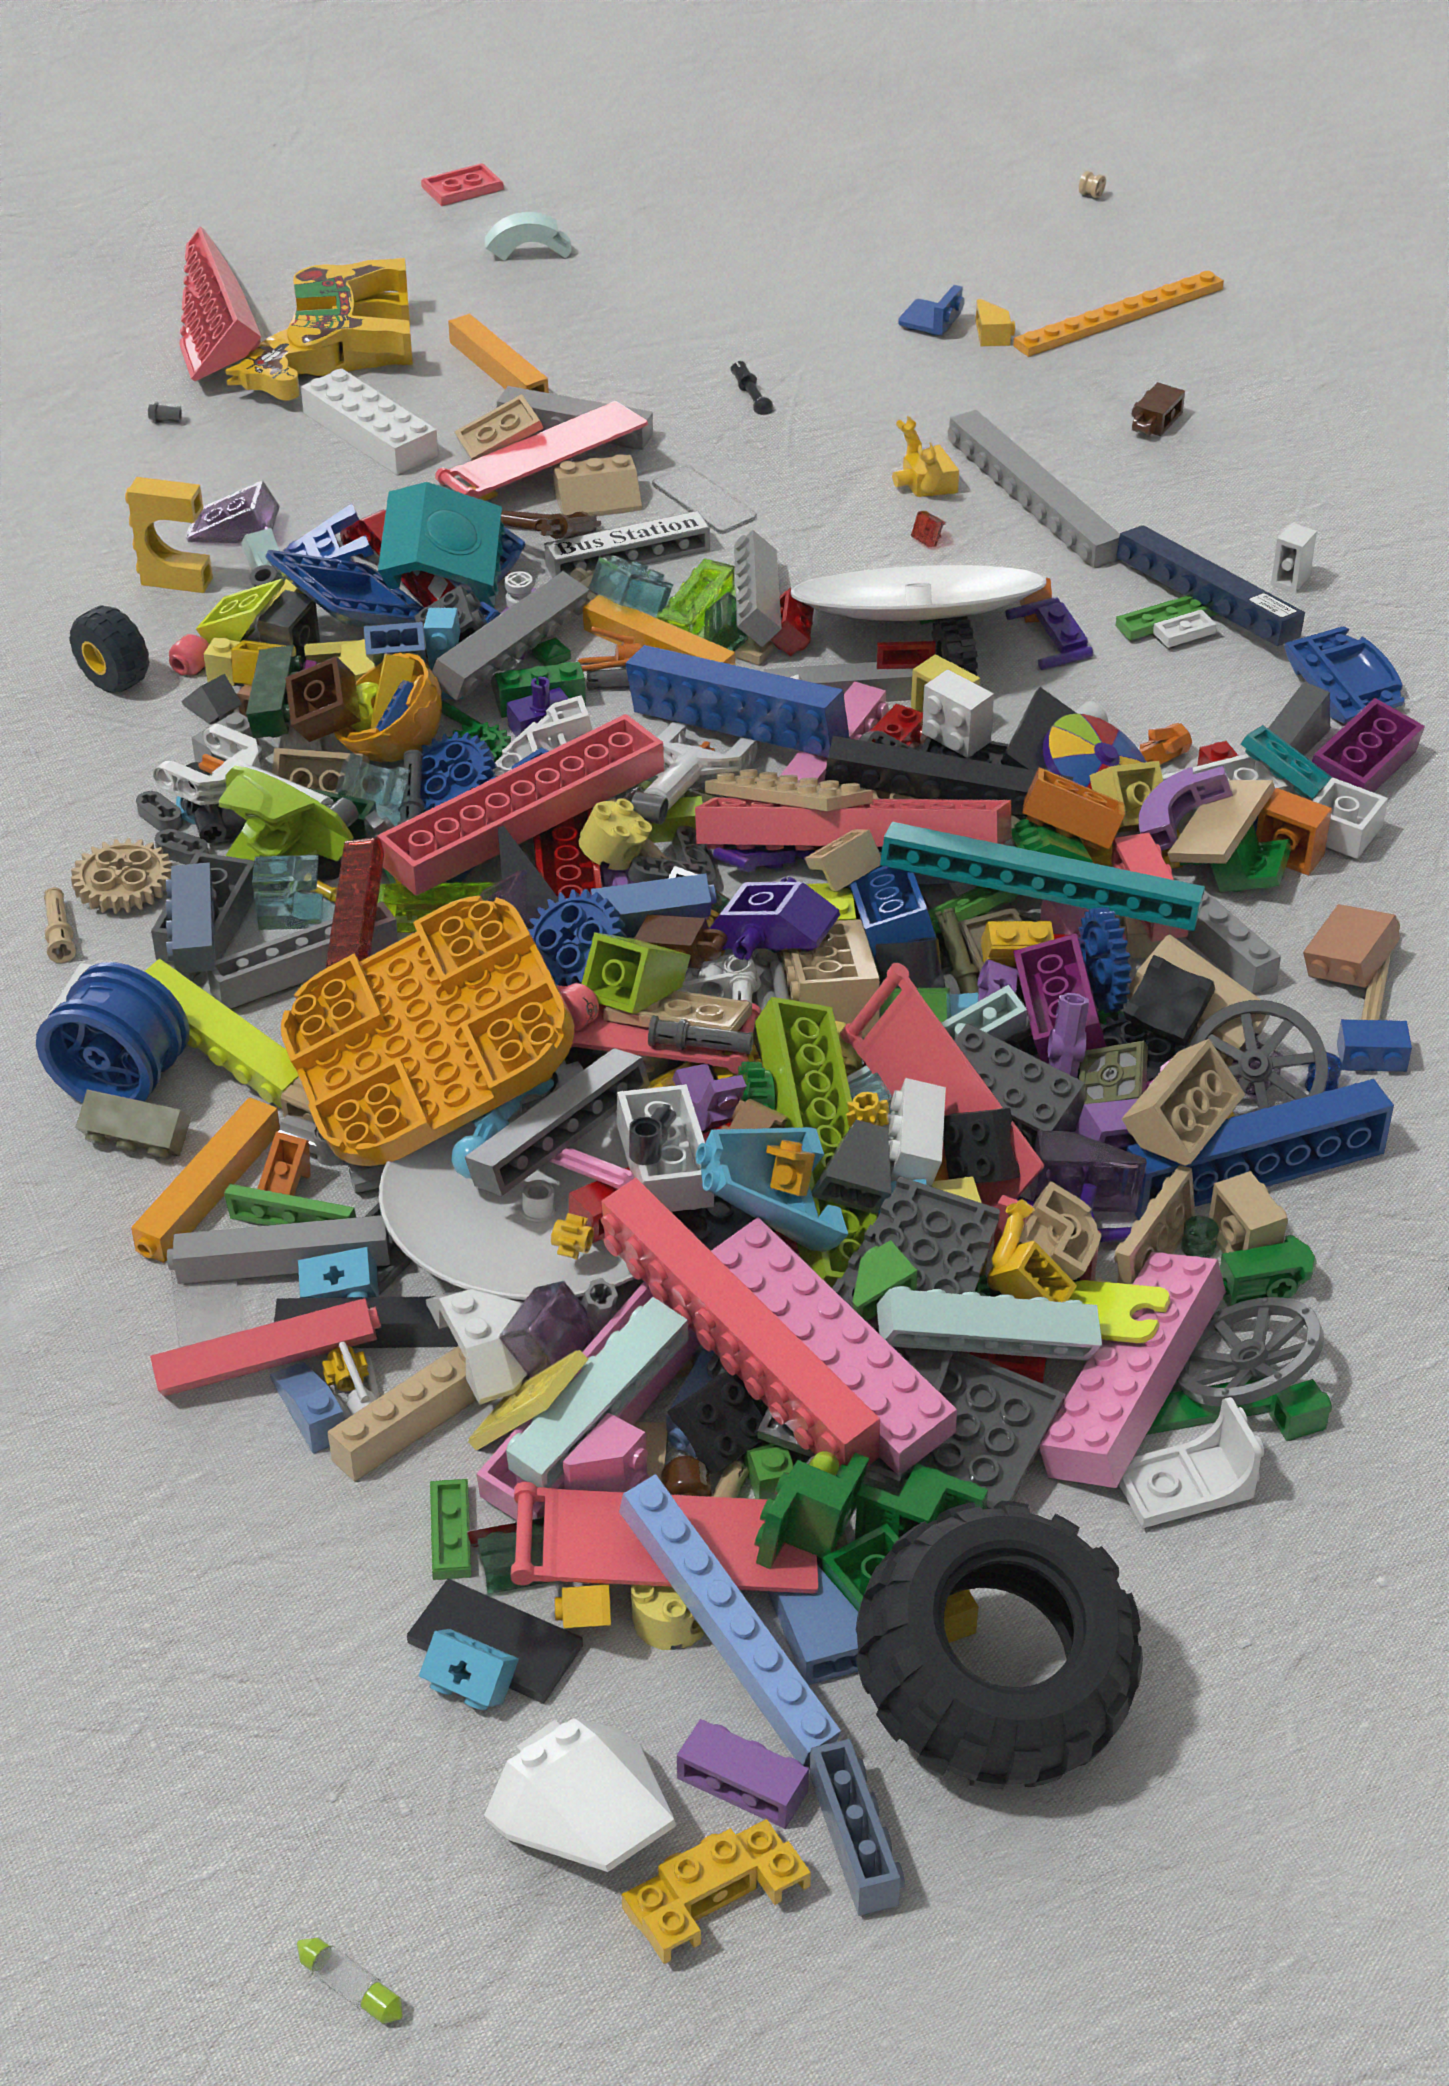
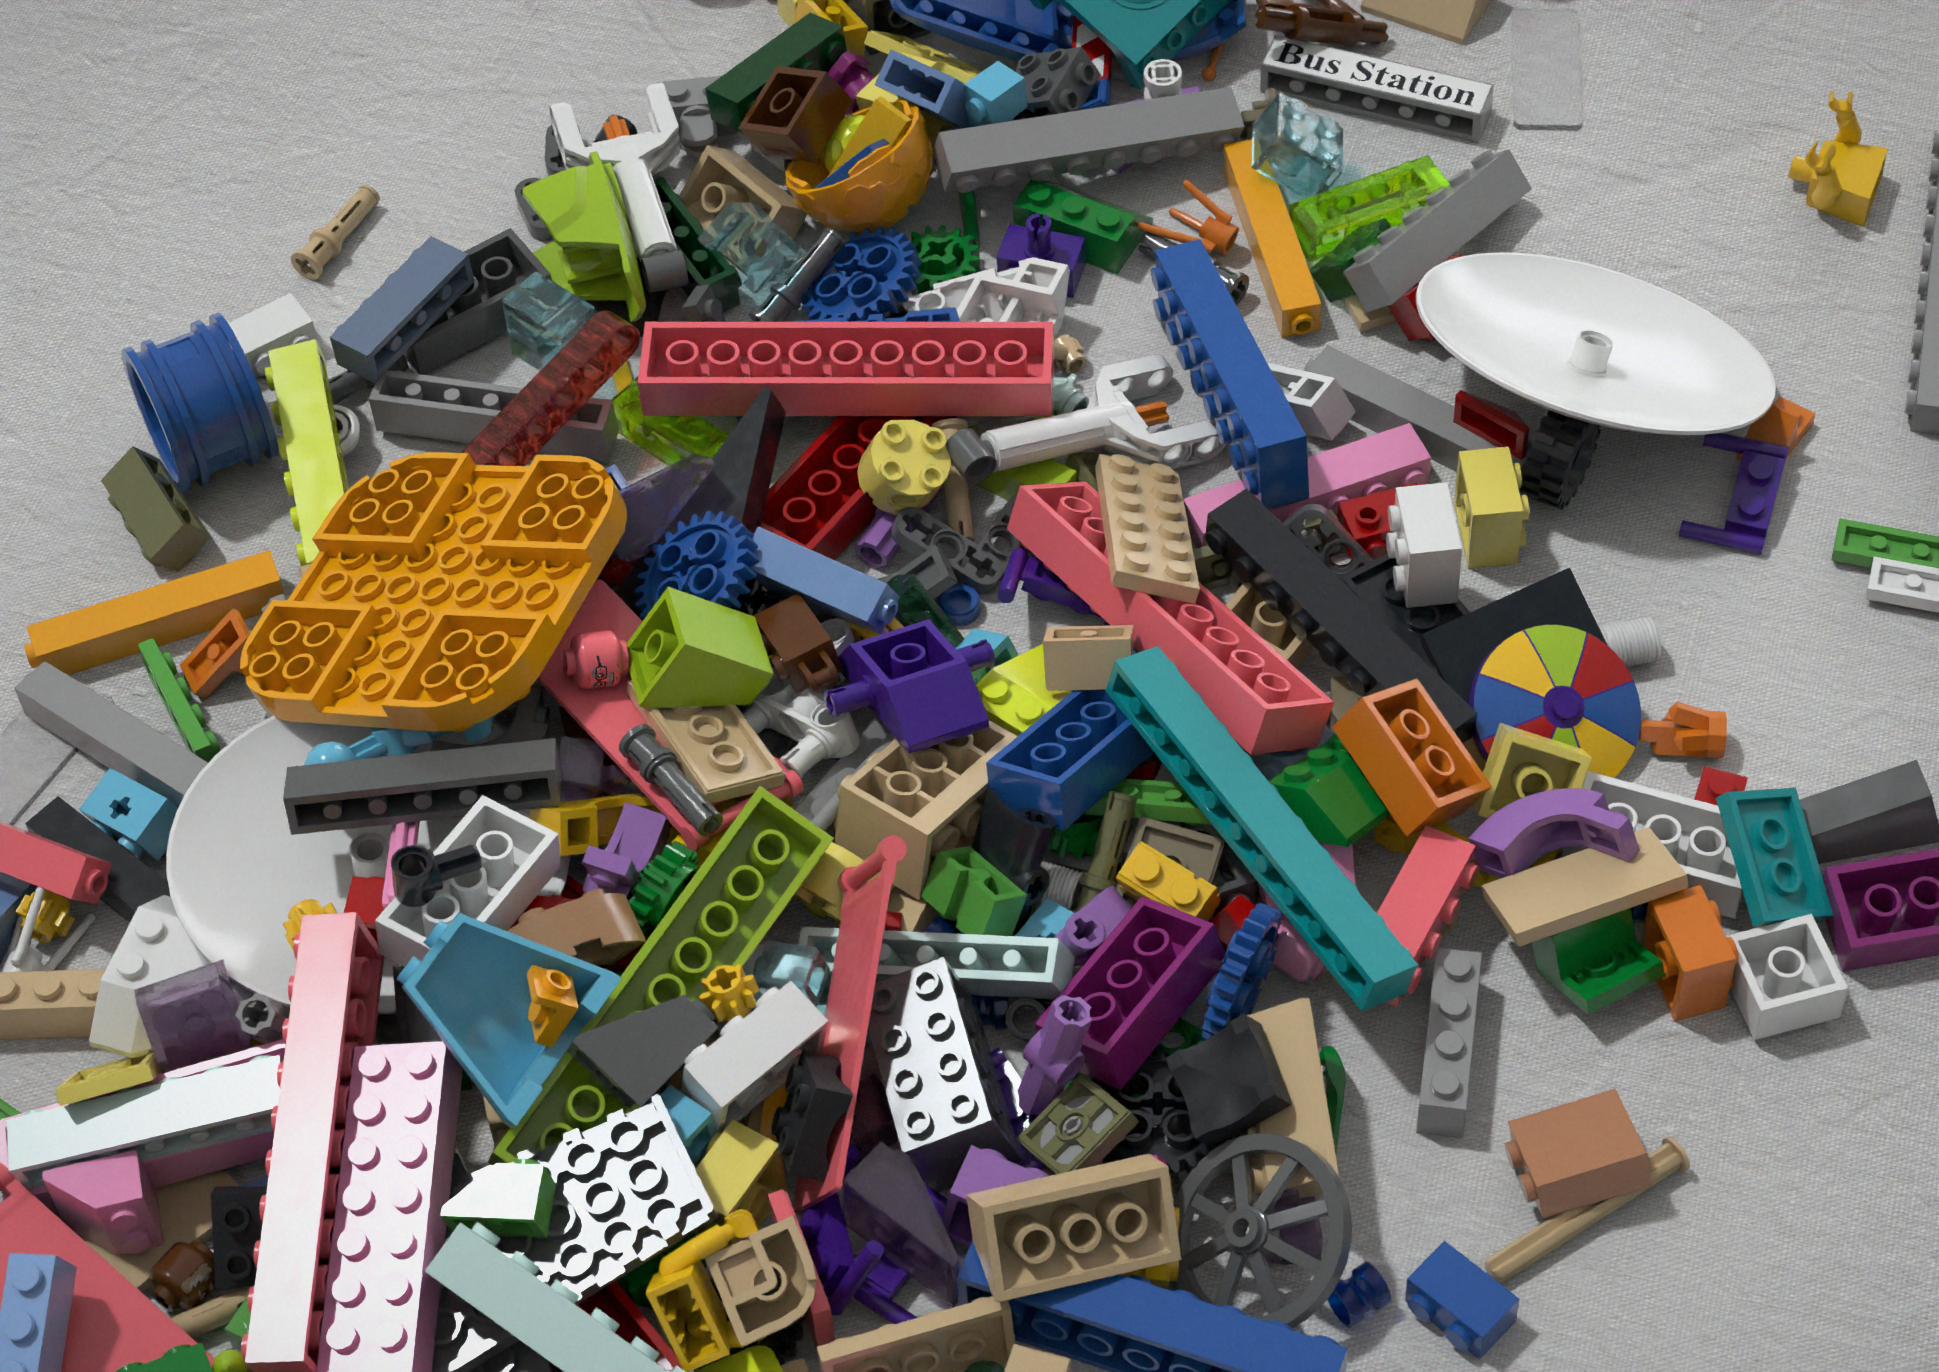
camera: 45 degrees right, 10 degrees up
(121, 875) = (448, 204): tan gear -> none
(213, 700) = (740, 41): dark grey slope -> none
(551, 652) = (1149, 183): green tile -> none
(927, 528) = (1753, 259): clear red tile -> none

